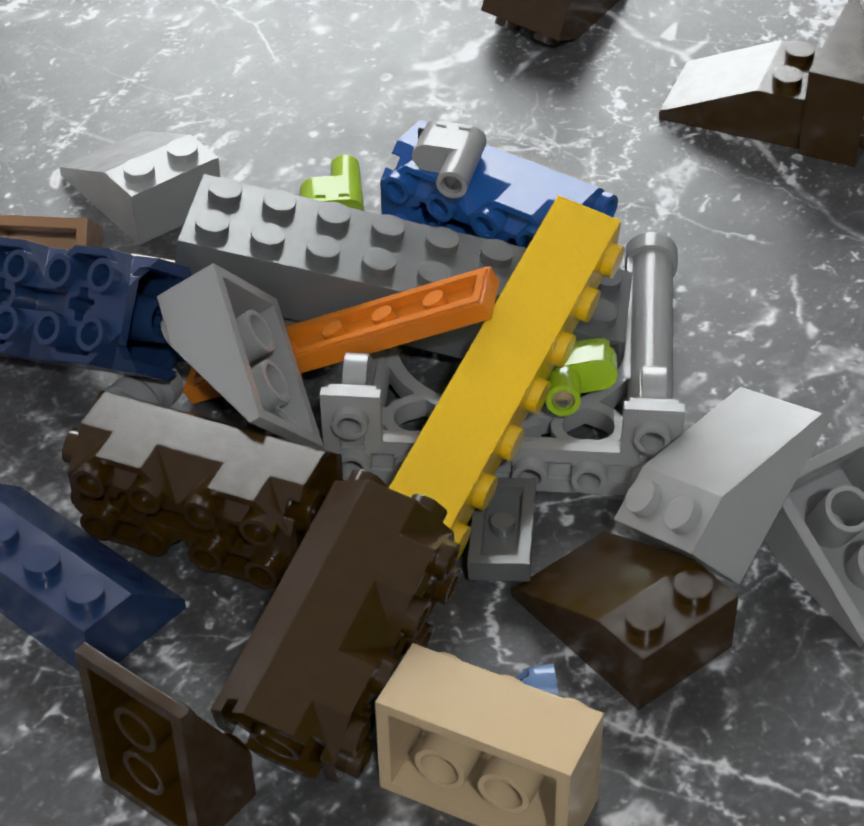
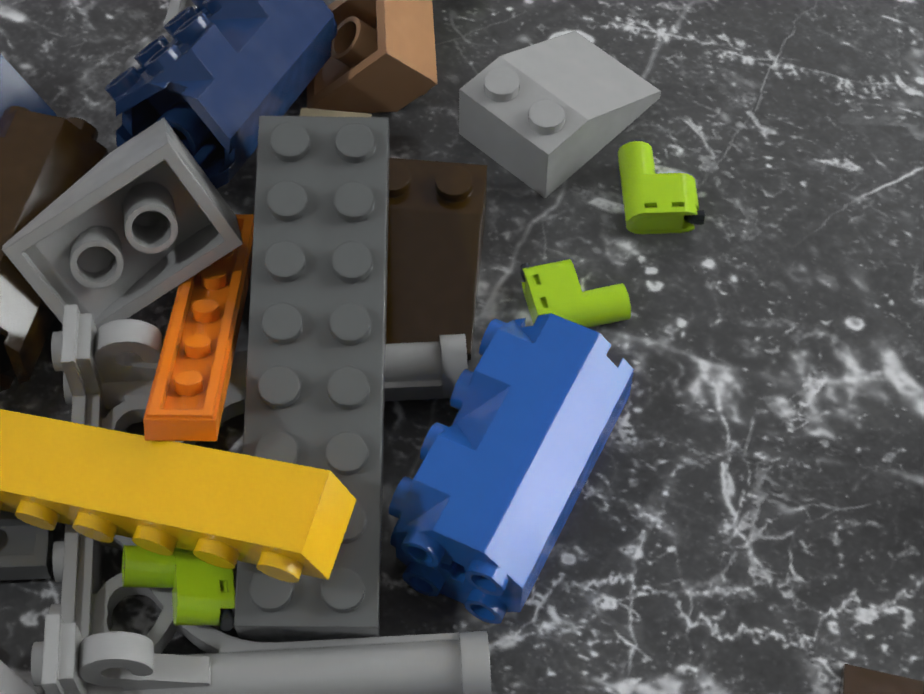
camera: 80 degrees right, 15 degrees up
(254, 142) = (656, 201): none -> lime piece
(450, 151) = (506, 377): light grey piece -> none

